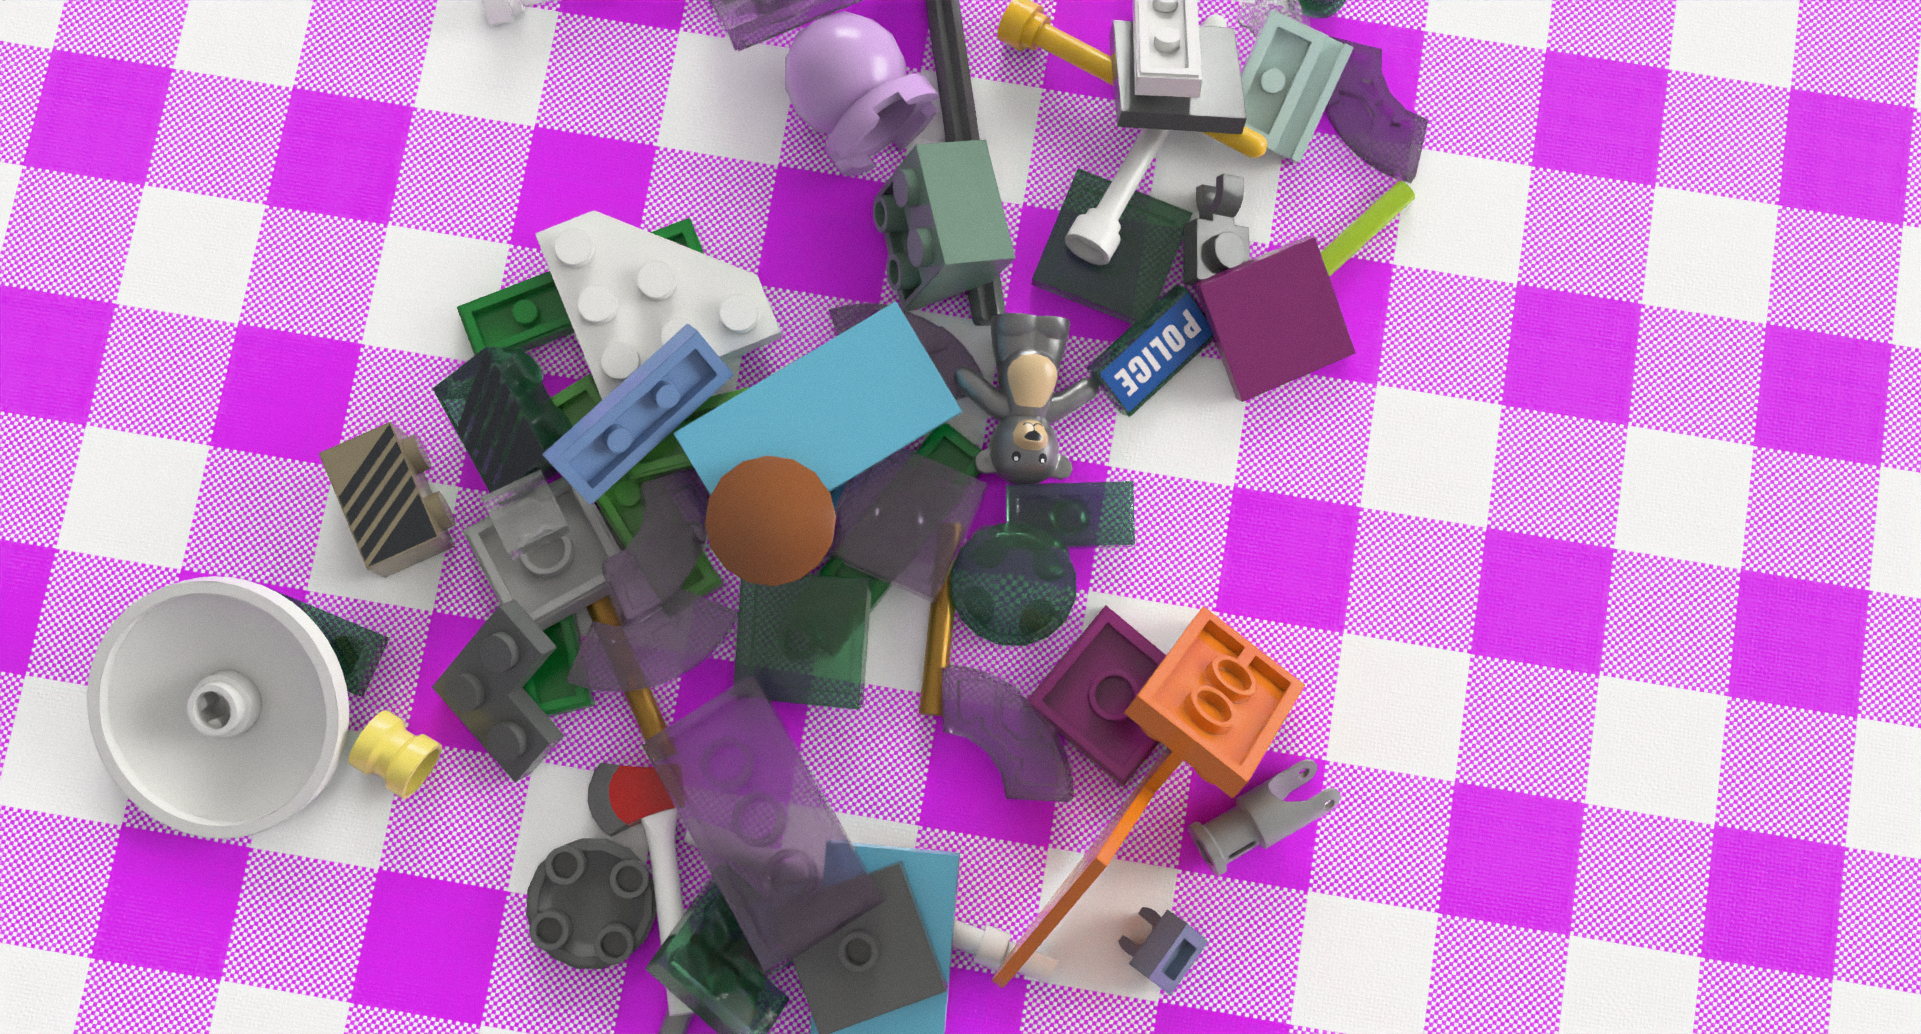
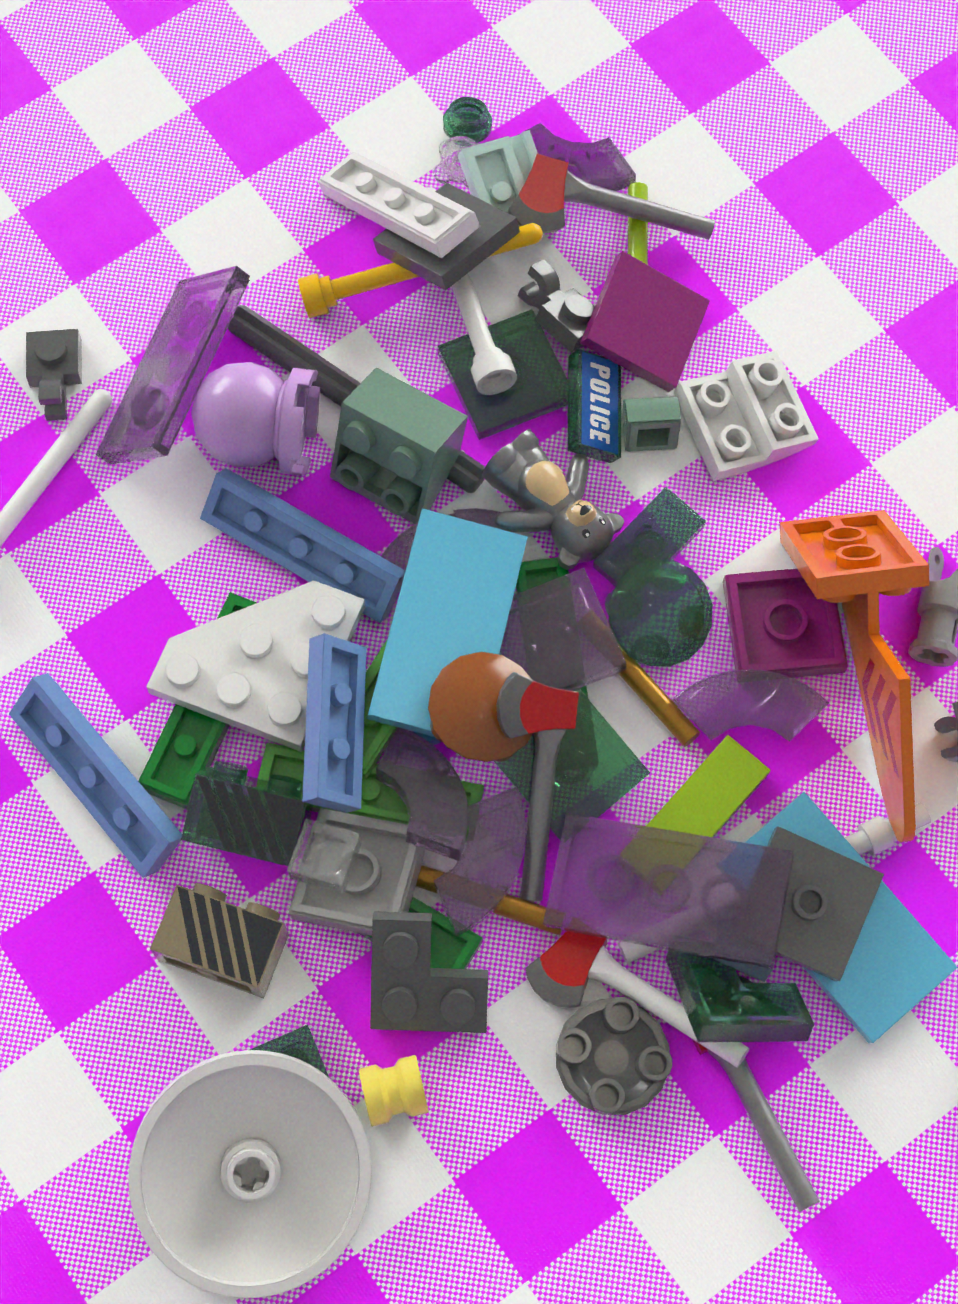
camera: 45 degrees left, 10 degrees down
(431, 267) = (95, 775): none -> medium blue plate
(785, 232) = (301, 543): none -> medium blue plate
(811, 579) = (547, 713): none -> piece
(889, 776) = (713, 791): none -> lime tile
(1185, 412) = (651, 423): none -> sand green brick
(1276, 485) = (745, 415): none -> white slope
(1321, 115) = (552, 184): none -> piece

